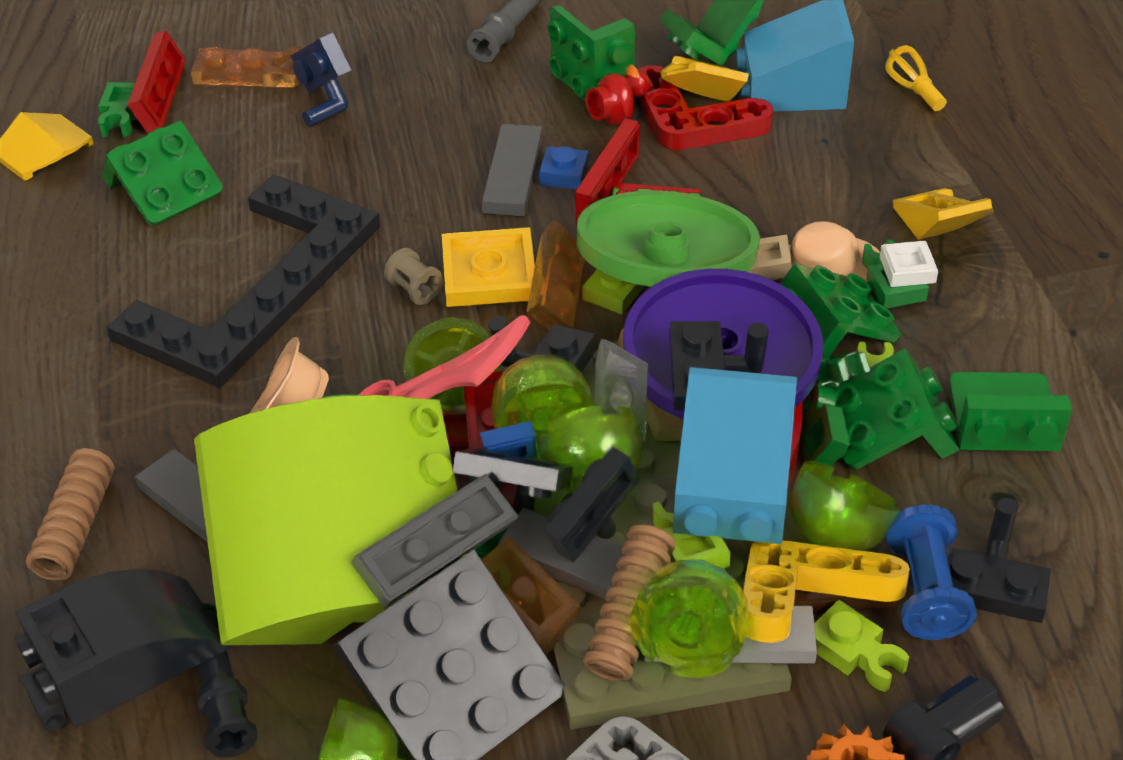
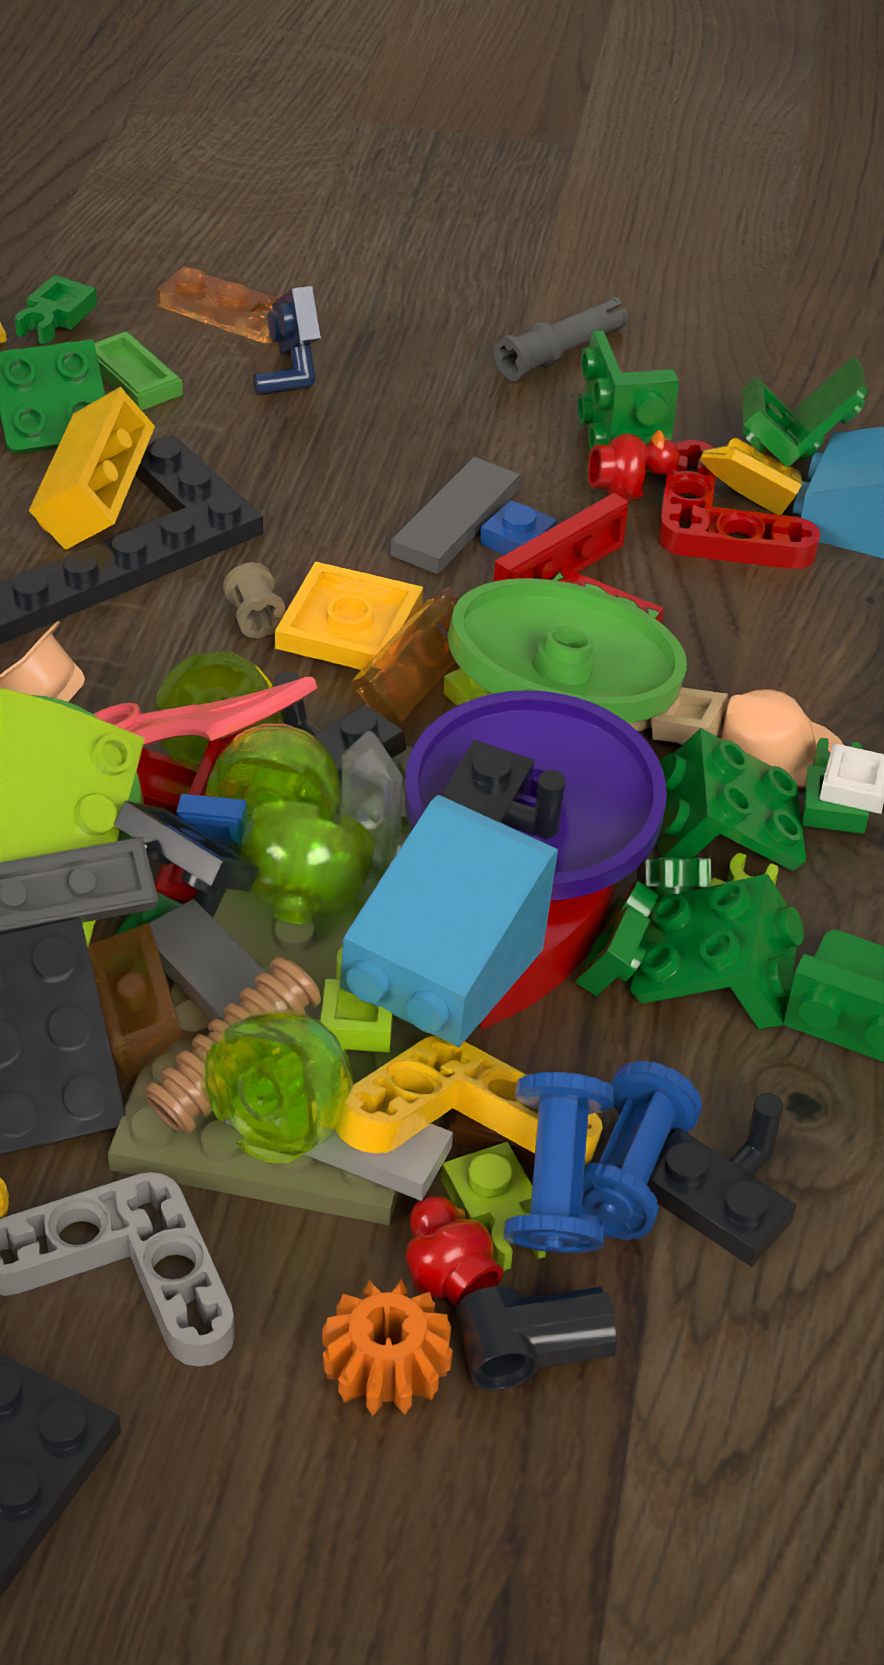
camera: 20 degrees right, 0 degrees up
(157, 82) = (108, 290): red tile -> none
(215, 137) = (137, 371): none -> bright green tile
(235, 218) = (92, 469): none -> yellow brick
(590, 507) = (252, 919): black plate -> none
(840, 509) = (560, 1029): clear neon green cylinder -> none
(853, 696) = (449, 1252): none -> red animal
(905, 599) = (559, 1162): none -> blue hose

